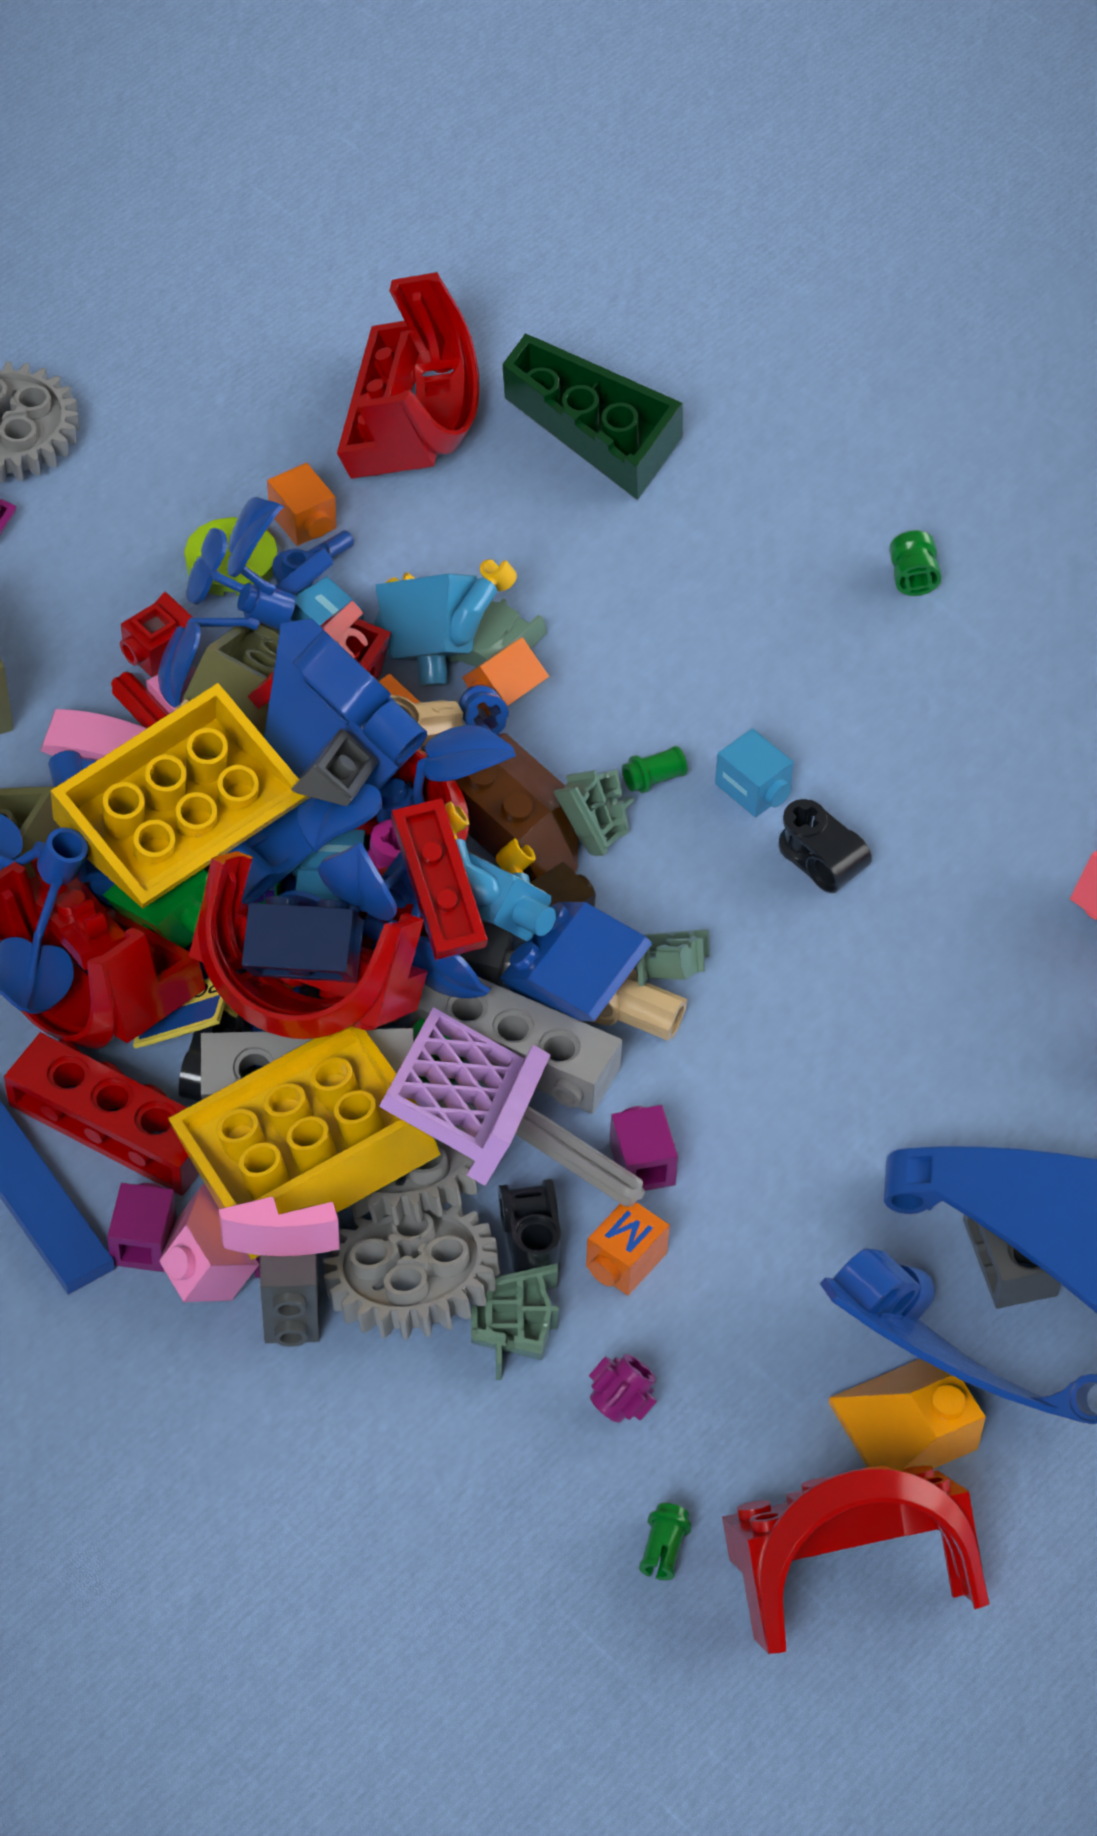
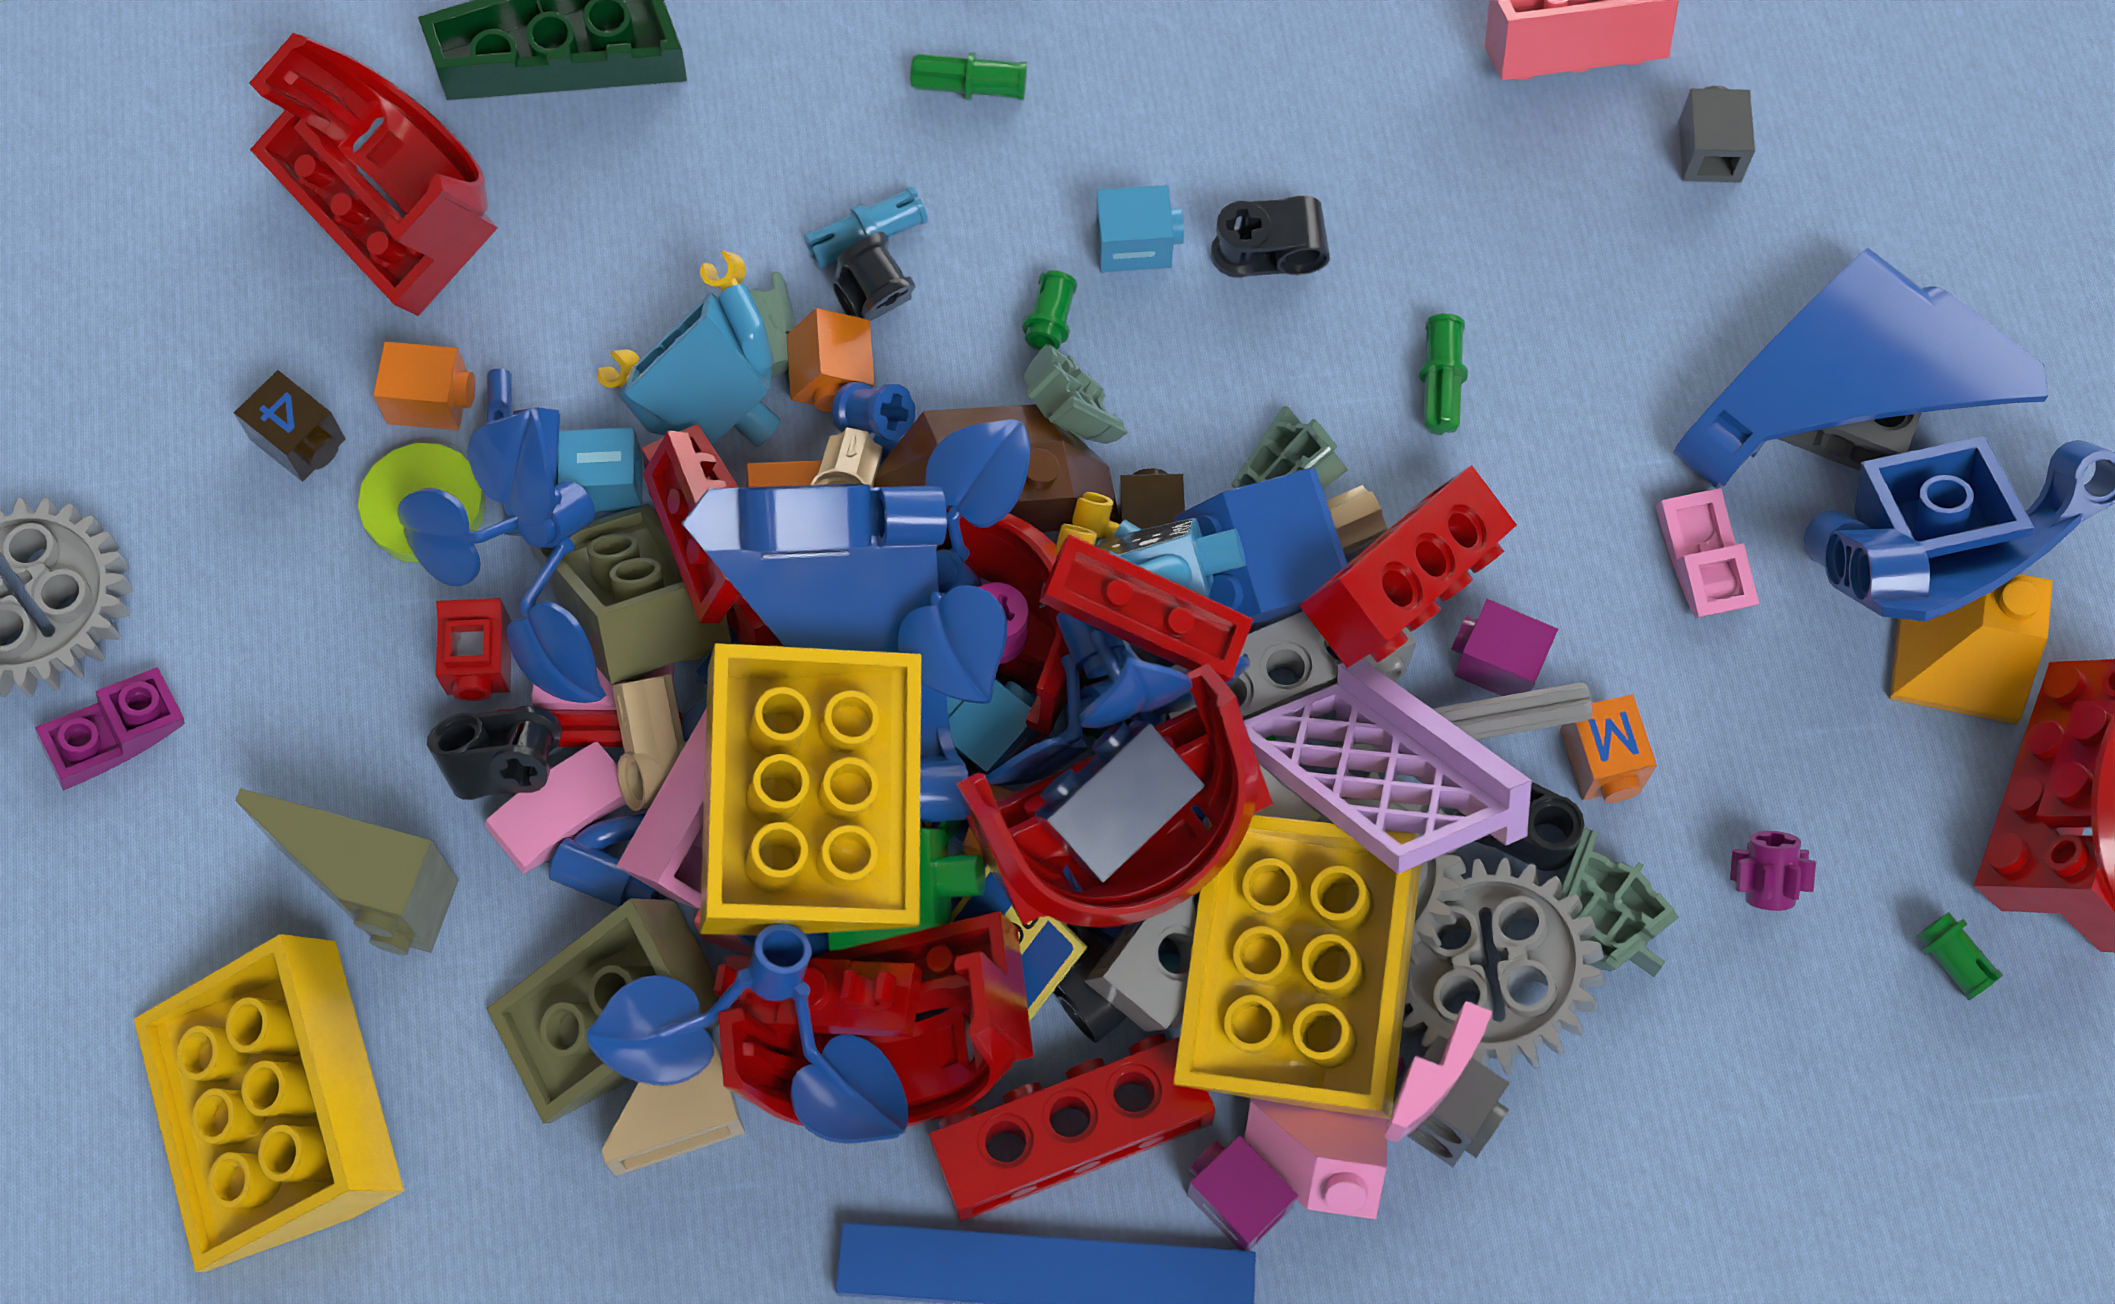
camera: 50 degrees left, 15 degrees up
(100, 681) = (489, 754): none -> black piece
(218, 463) = (290, 426): none -> dark brown brick
(336, 770) = (912, 611): dark grey slope -> none
(579, 659) = (870, 279): none -> black piece
(619, 643) = (887, 216): none -> dark azure pin
(710, 1049) = (1410, 567): none -> red brick
(781, 628) = (969, 76): none -> green axle
(817, 1000) = (1443, 373): none -> green axle
(831, 1227) = (1705, 555): none -> bright pink slope
(985, 1317) = (1942, 497): none -> blue slope

